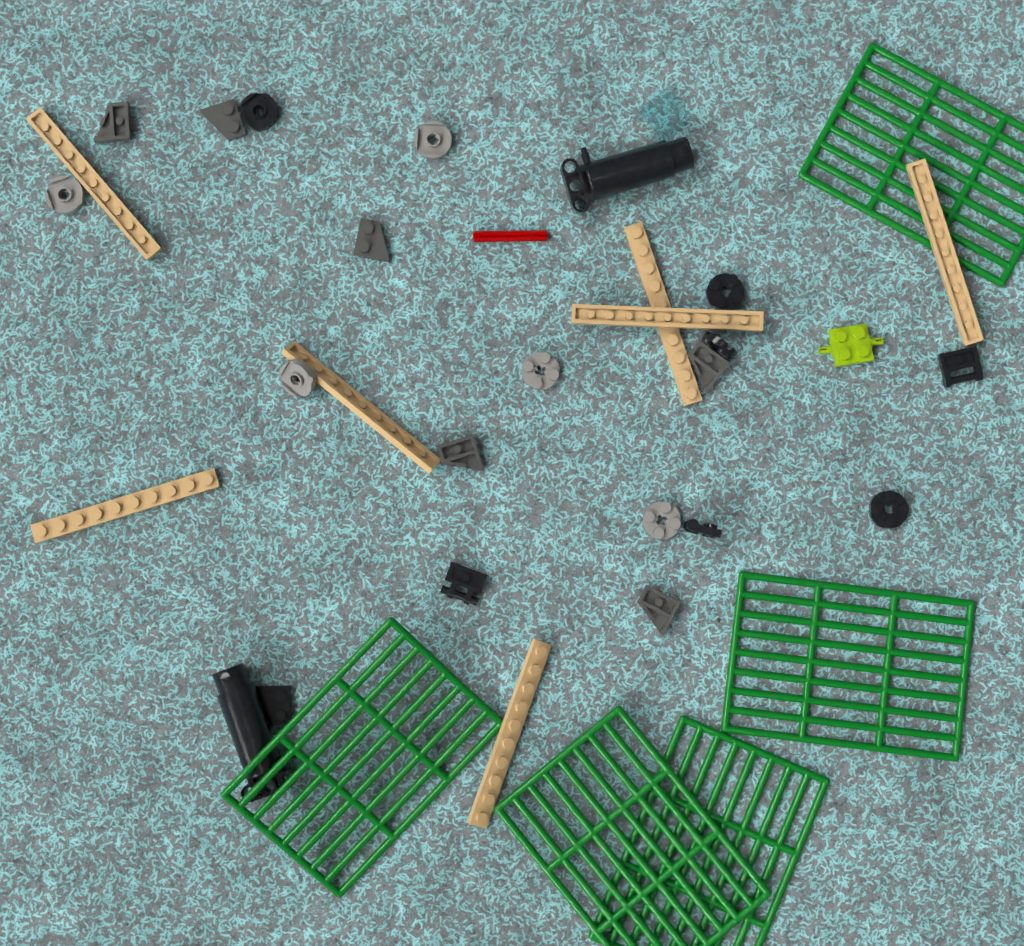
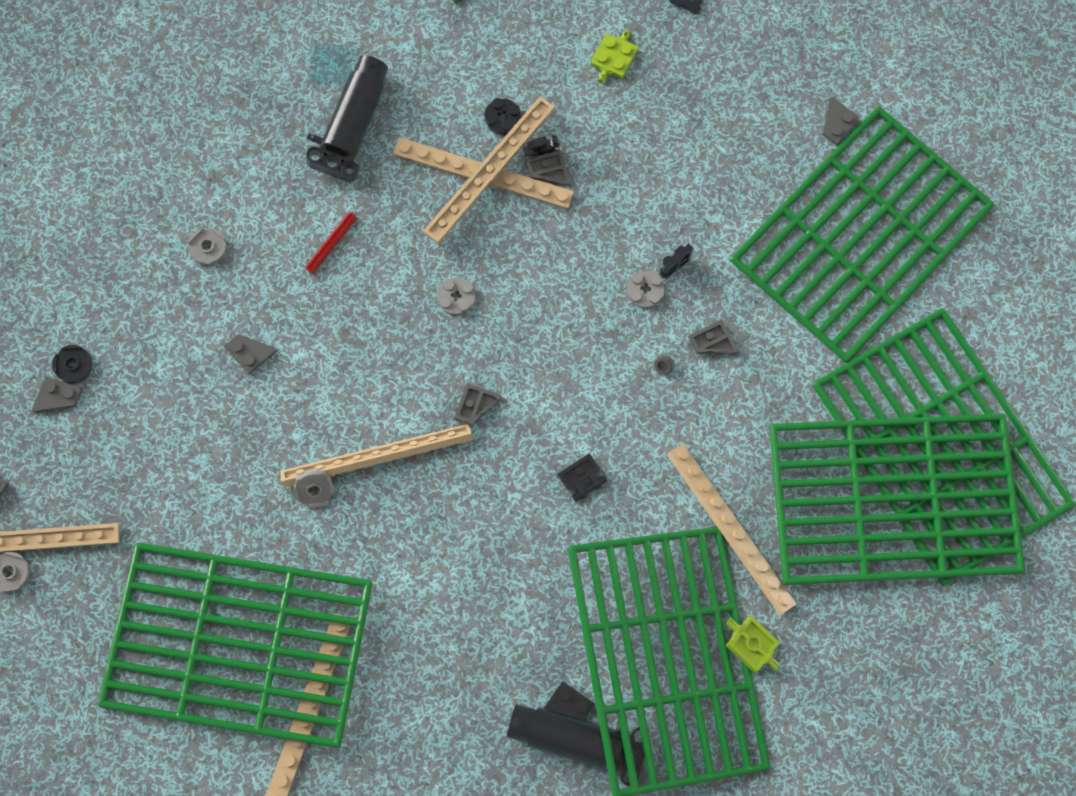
camera: 55 degrees left, 10 degrees down
(151, 444) = (273, 649): none -> green bar
(426, 816) = (752, 644): none -> lime plate
(607, 582) = (664, 364): none -> dark grey tile
(888, 520) = (764, 108): black plate -> none
(934, 576) = (838, 121): none -> dark grey wing

